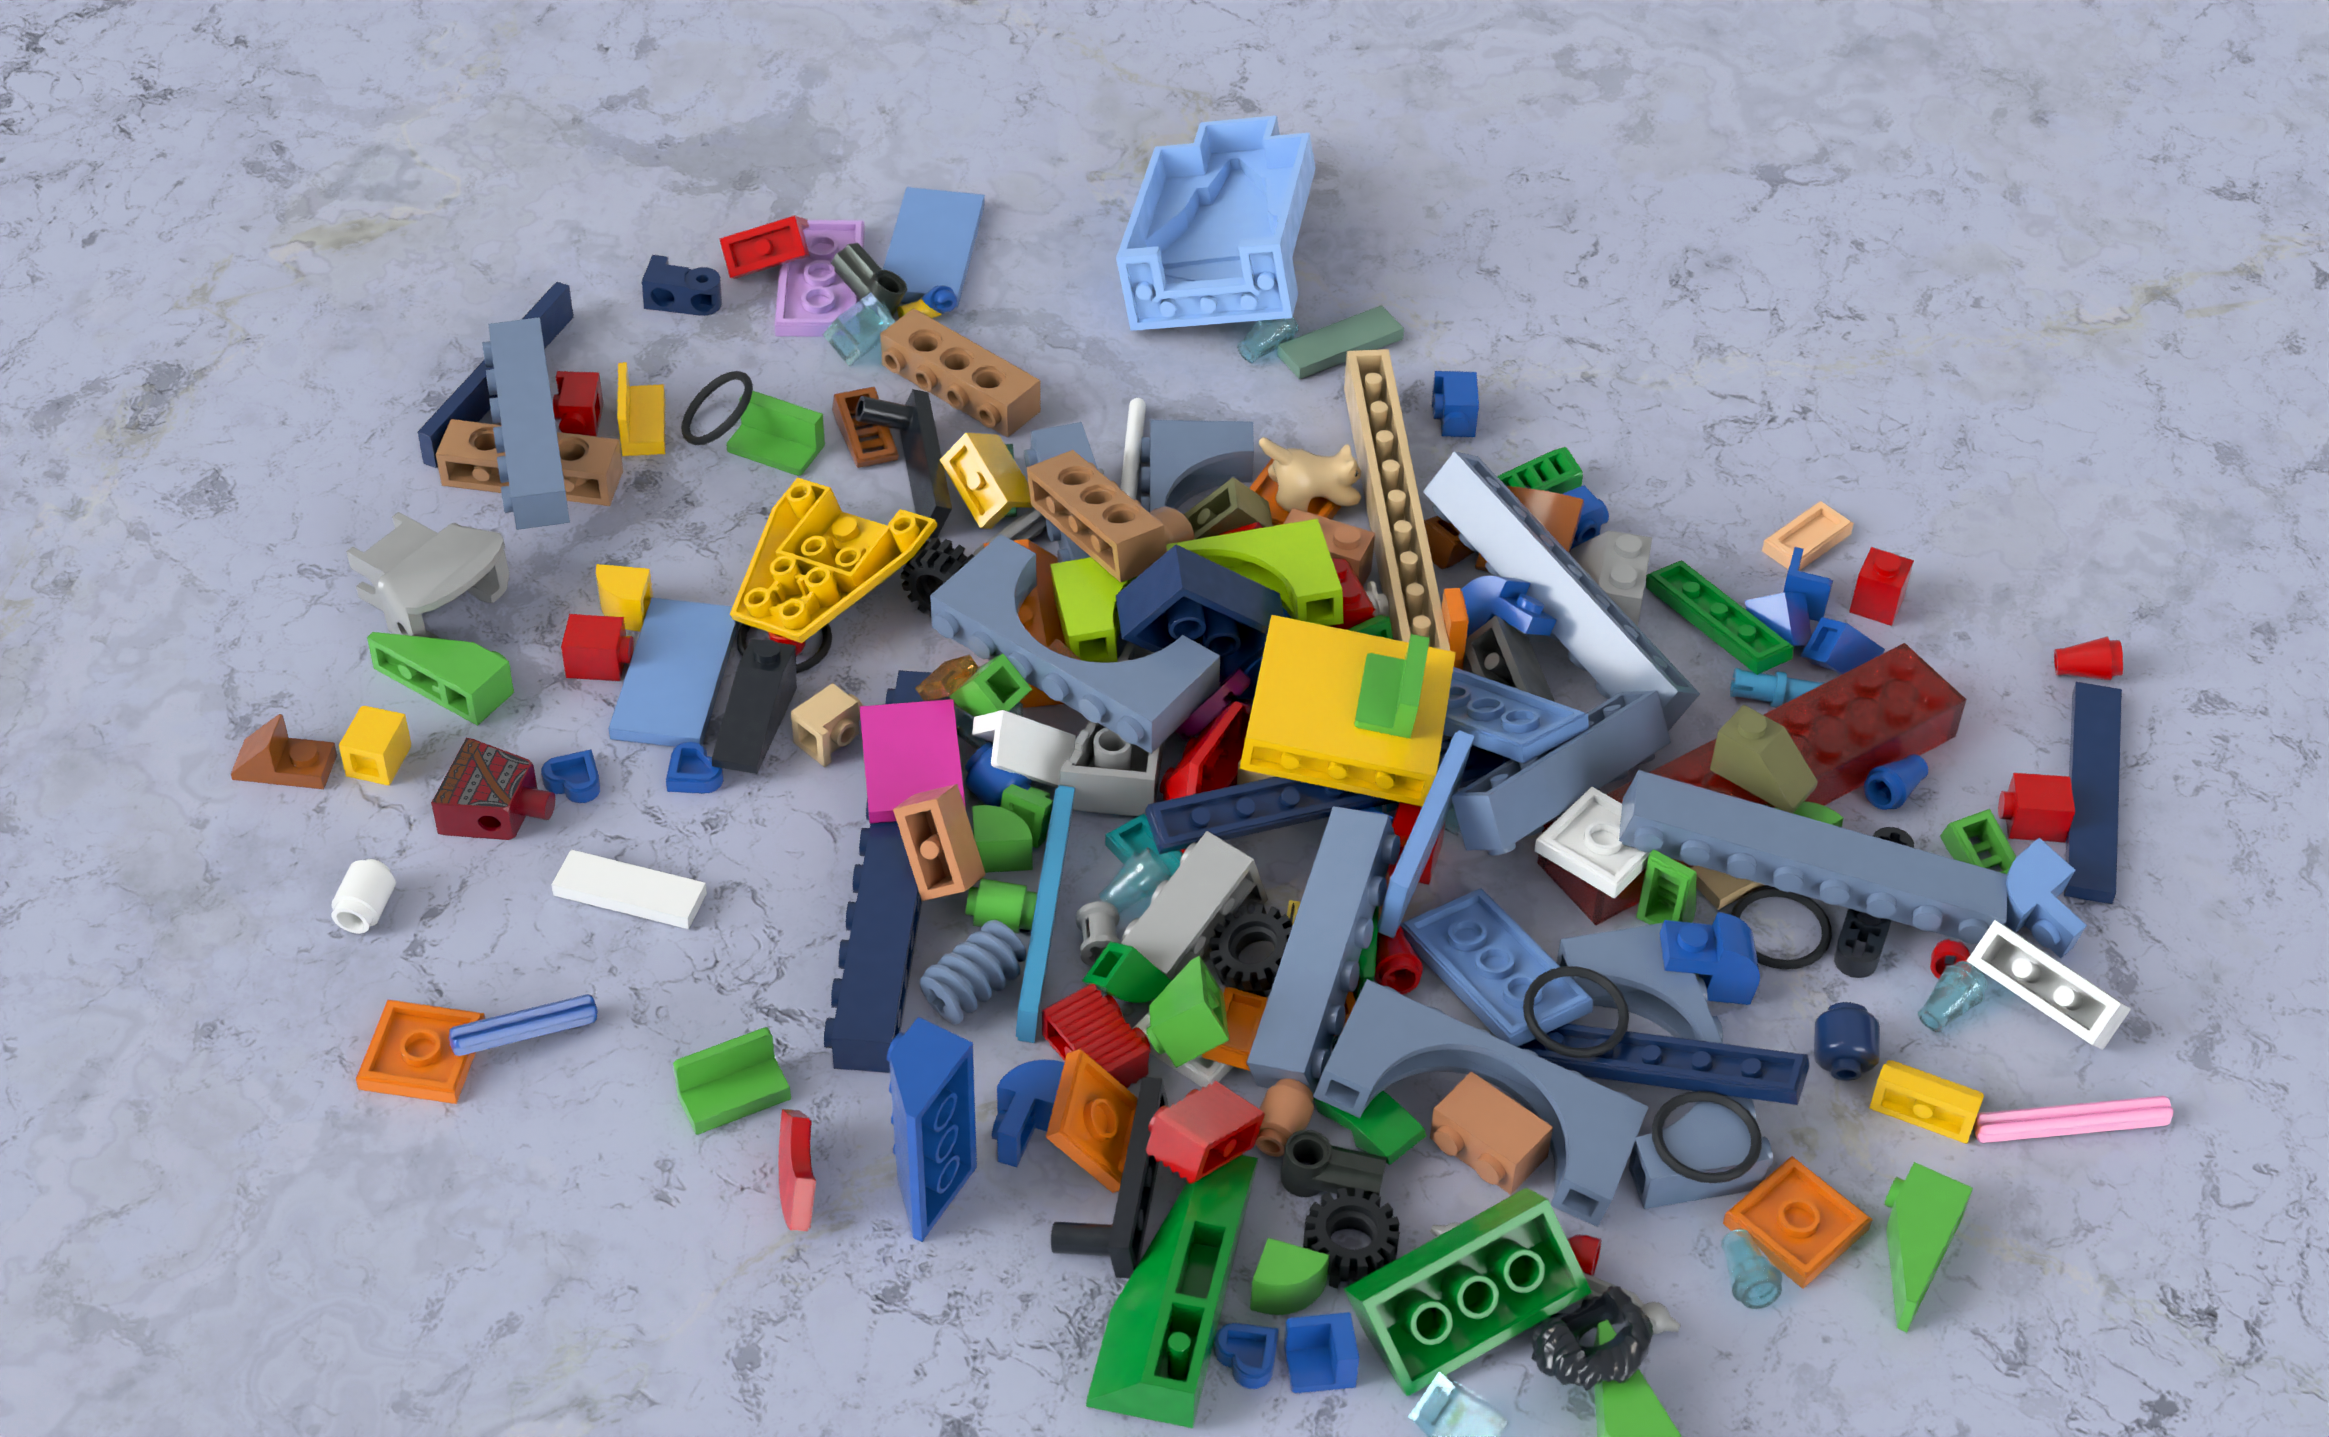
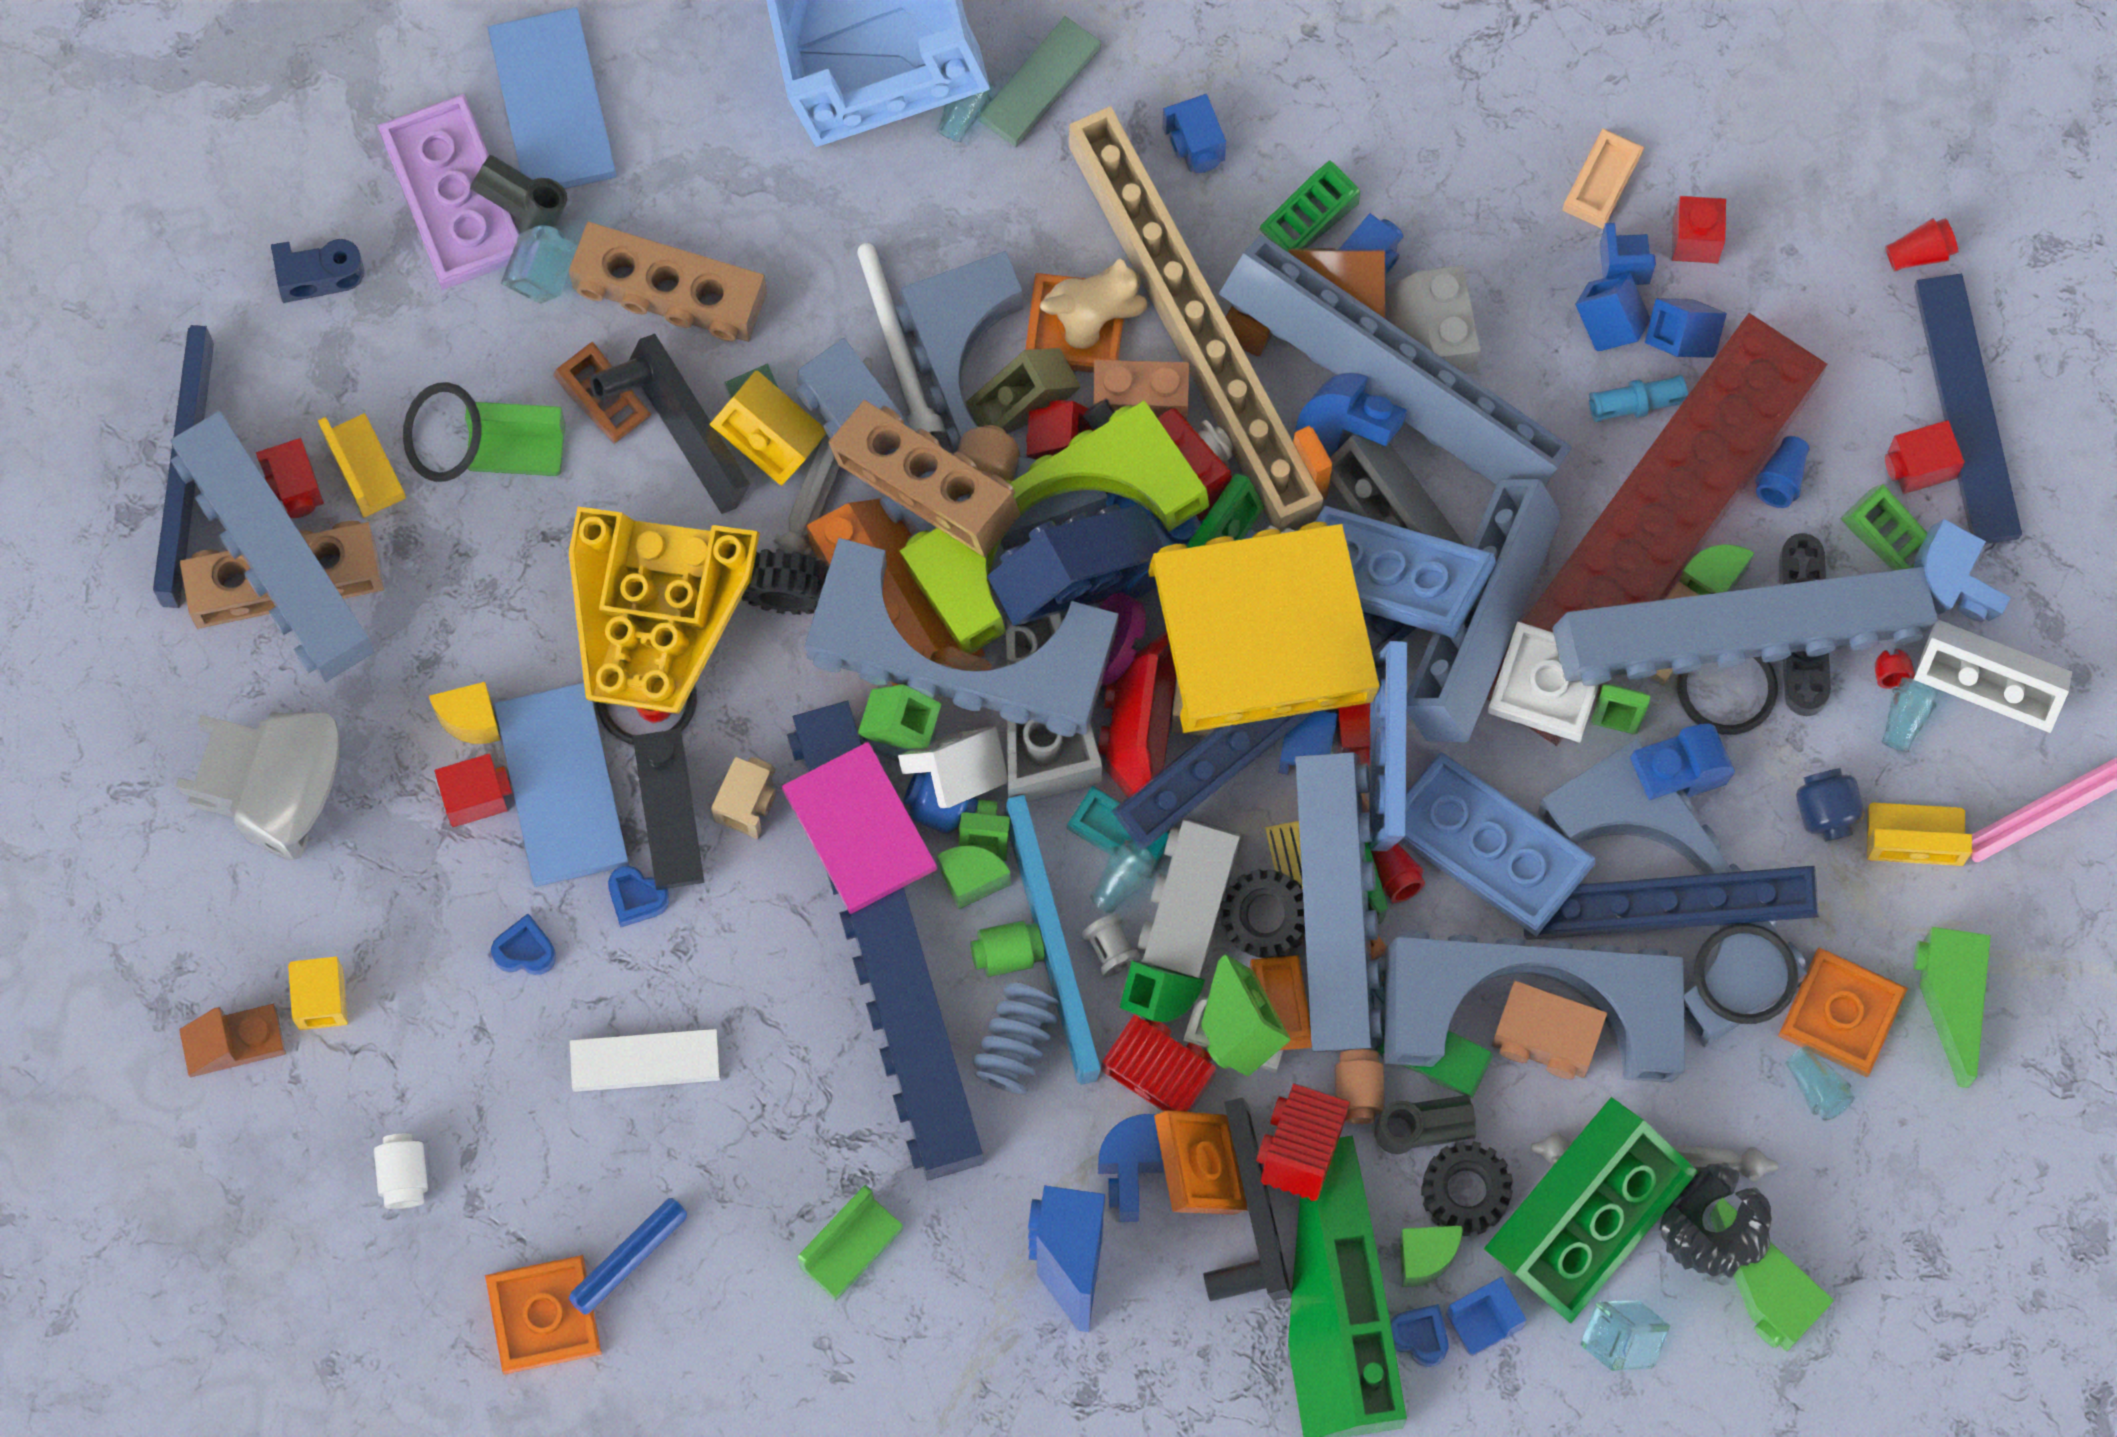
camera: 20 degrees left, 25 degrees up
(446, 671) = (344, 877): bright green slope -> none
(489, 794) = (460, 1007): dark red torso -> none
(765, 246) = (381, 179): red panel -> none
(795, 1170) = (950, 1313): tile -> none
(933, 304) = (599, 185): blue arm -> none
(939, 842) = (932, 920): nougat brick -> none
(947, 678) = (851, 719): clear orange tile -> none
(1392, 690) = (1305, 605): bright green panel -> none
(1559, 1048) = (1551, 908): black tyre -> none
(1586, 1252) = (1672, 1125): red hinge -> none
(1719, 617) = (1554, 329): green tile -> none
(1762, 760) = (1670, 534): olive slope -> none

